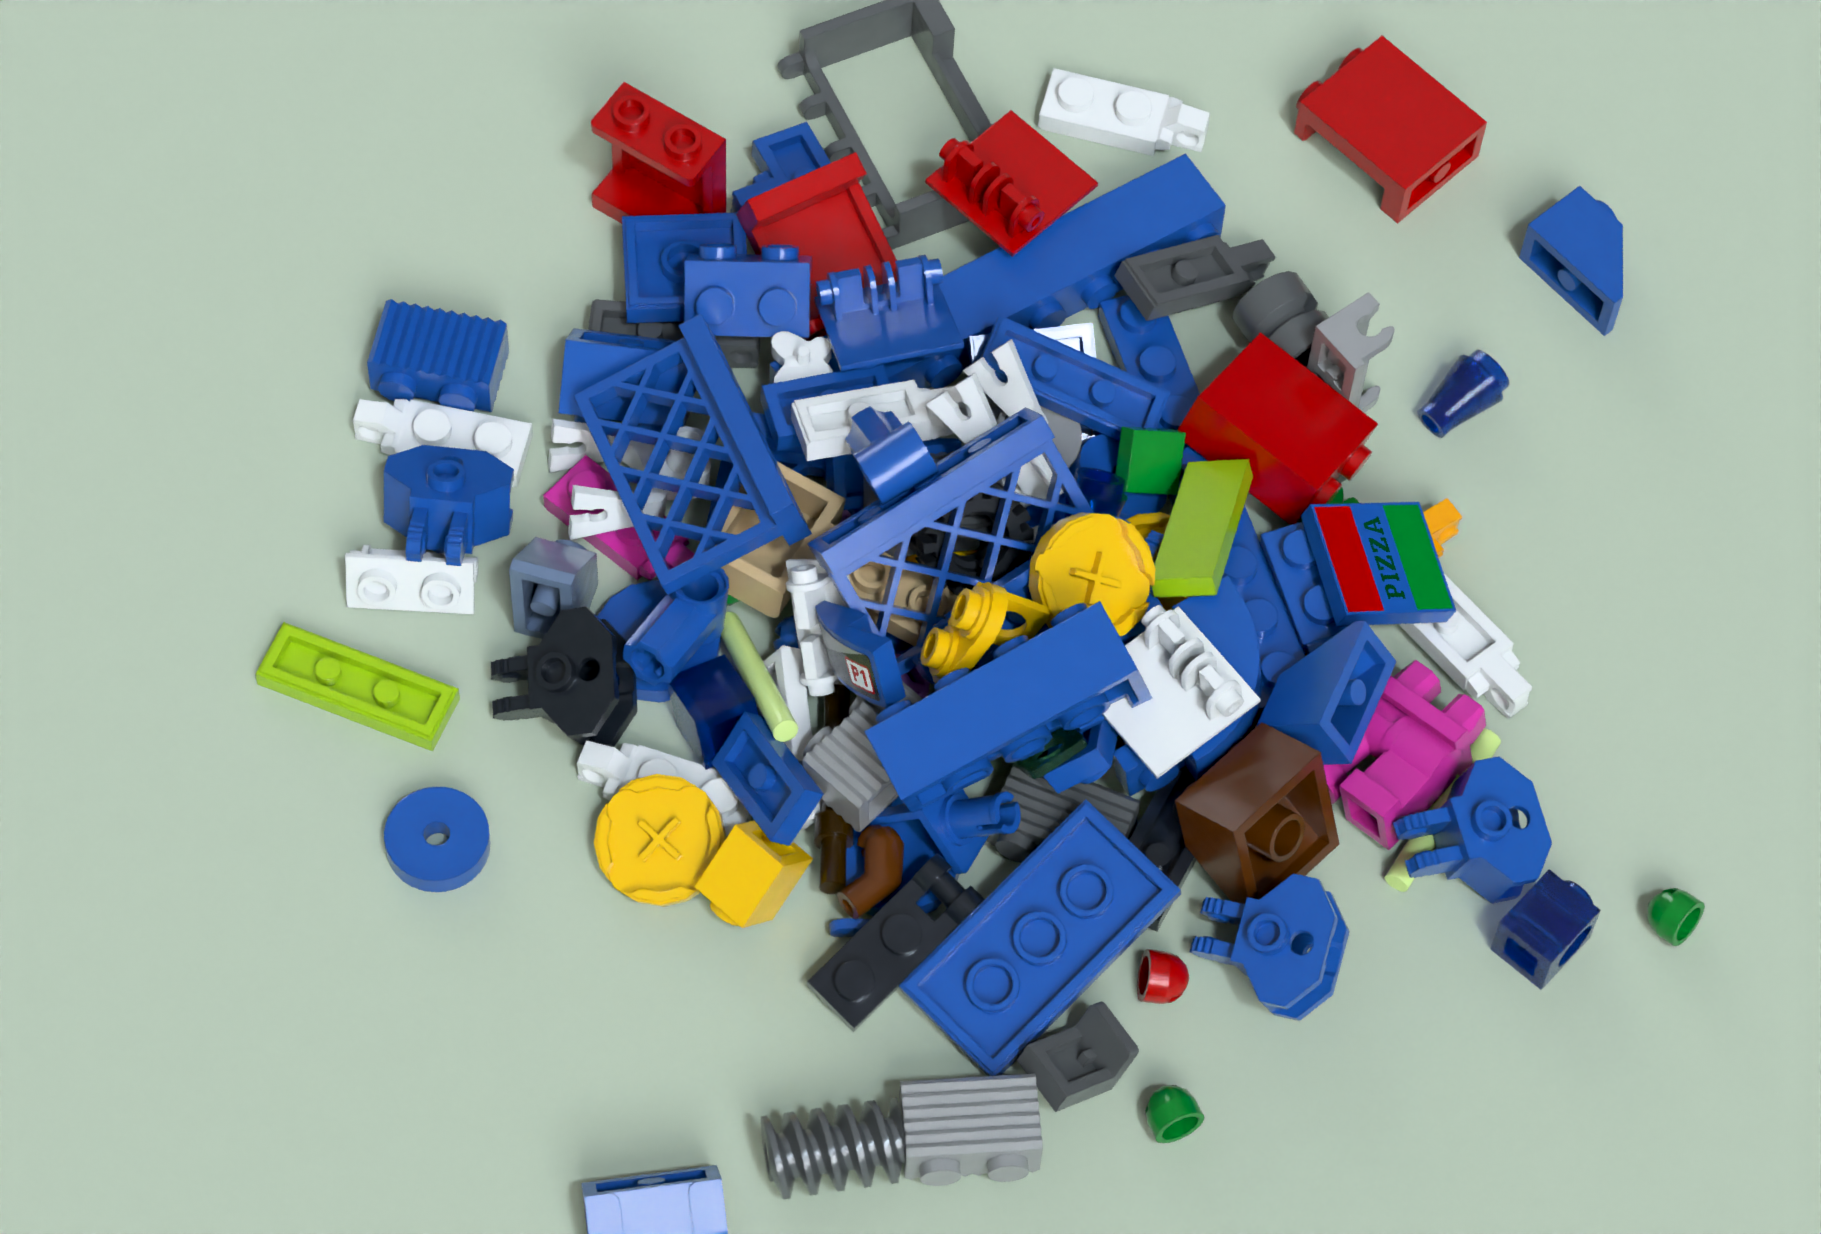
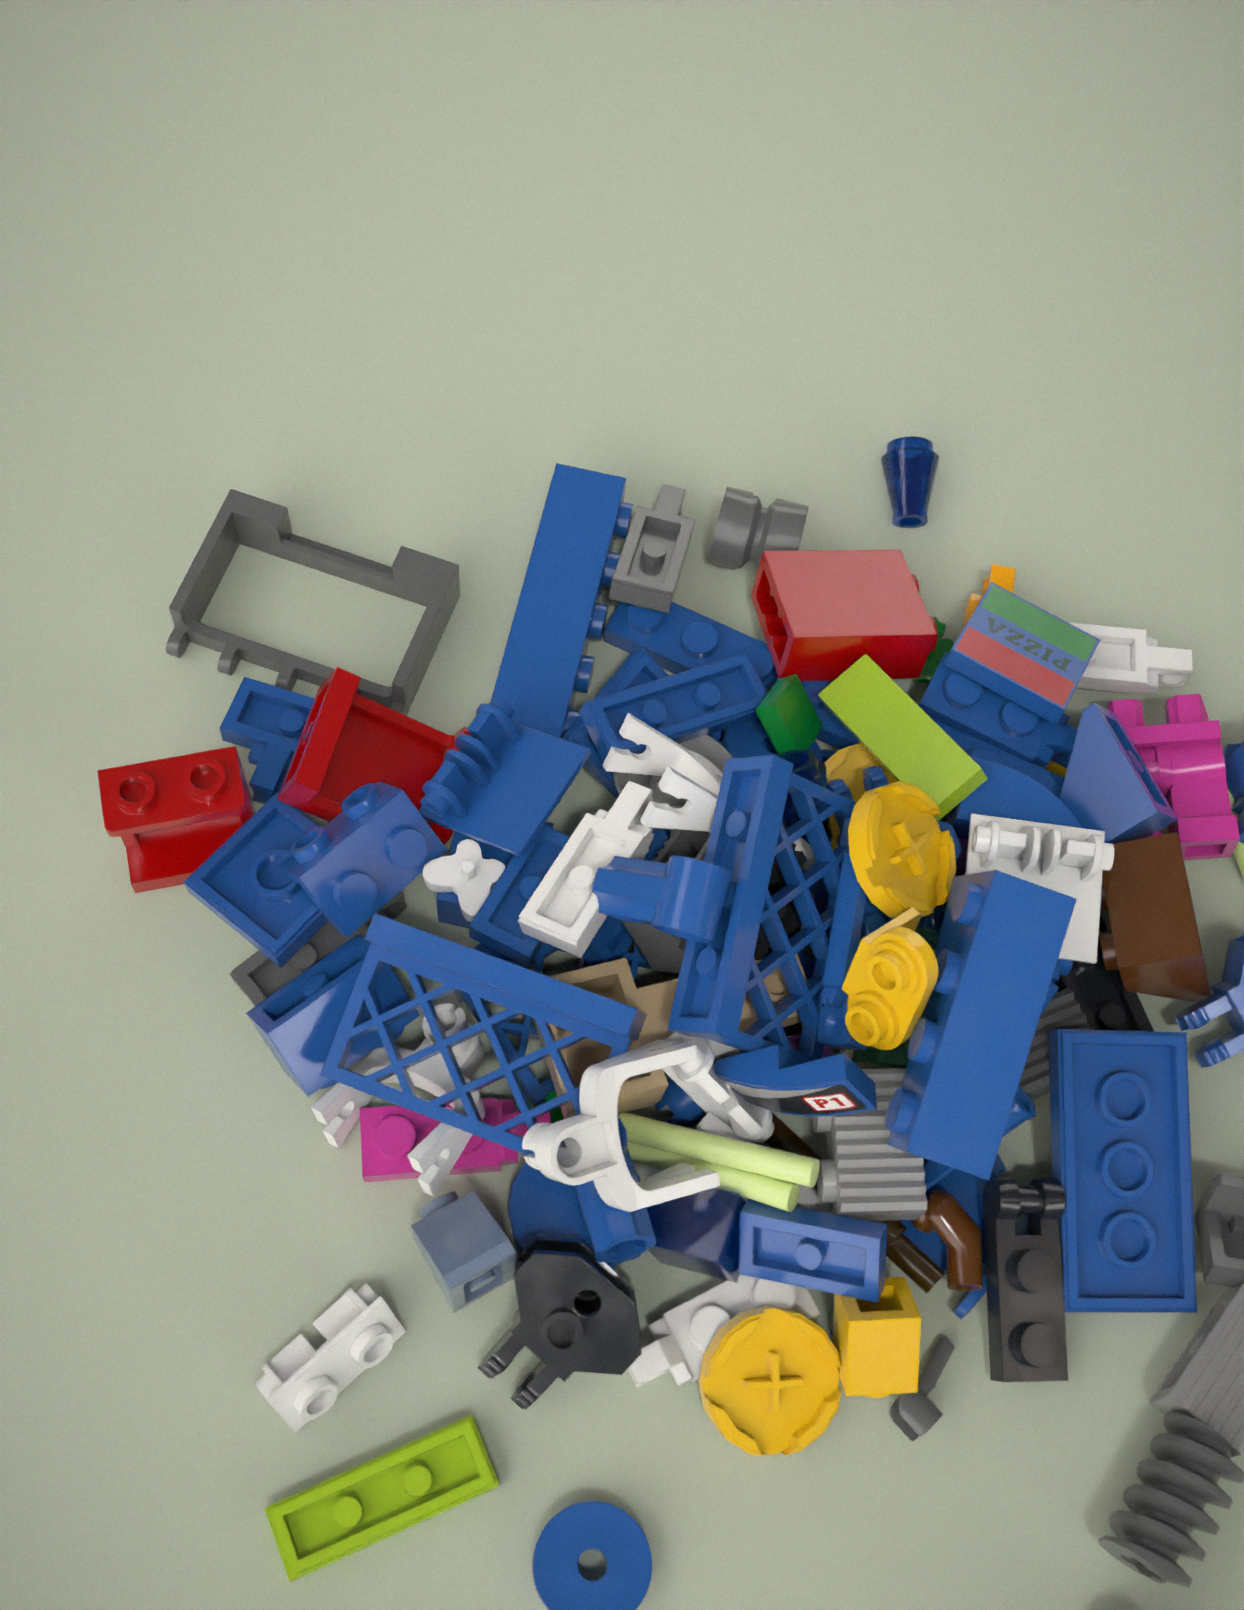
camera: 50 degrees left, 5 degrees up
(424, 423) = (228, 1203): white hinge -> none
(438, 356) = (151, 1143): blue brick -> none
(447, 500) = (302, 1268): blue hinge -> none
(685, 561) = (593, 1140): none -> white piece
(737, 945) = (915, 1411): none -> dark grey hand
(774, 666) = (721, 1150): none -> yellowish green bar
(1009, 182) = (464, 591): red hinge -> none
(1120, 115) = (459, 477): white hinge -> none
(1161, 977) = (1211, 1109): red hinge -> none
(1343, 351) = (839, 515): light grey hinge -> none
(1392, 124) = (656, 325): red panel -> none
(1580, 256) = (879, 320): blue slope -> none

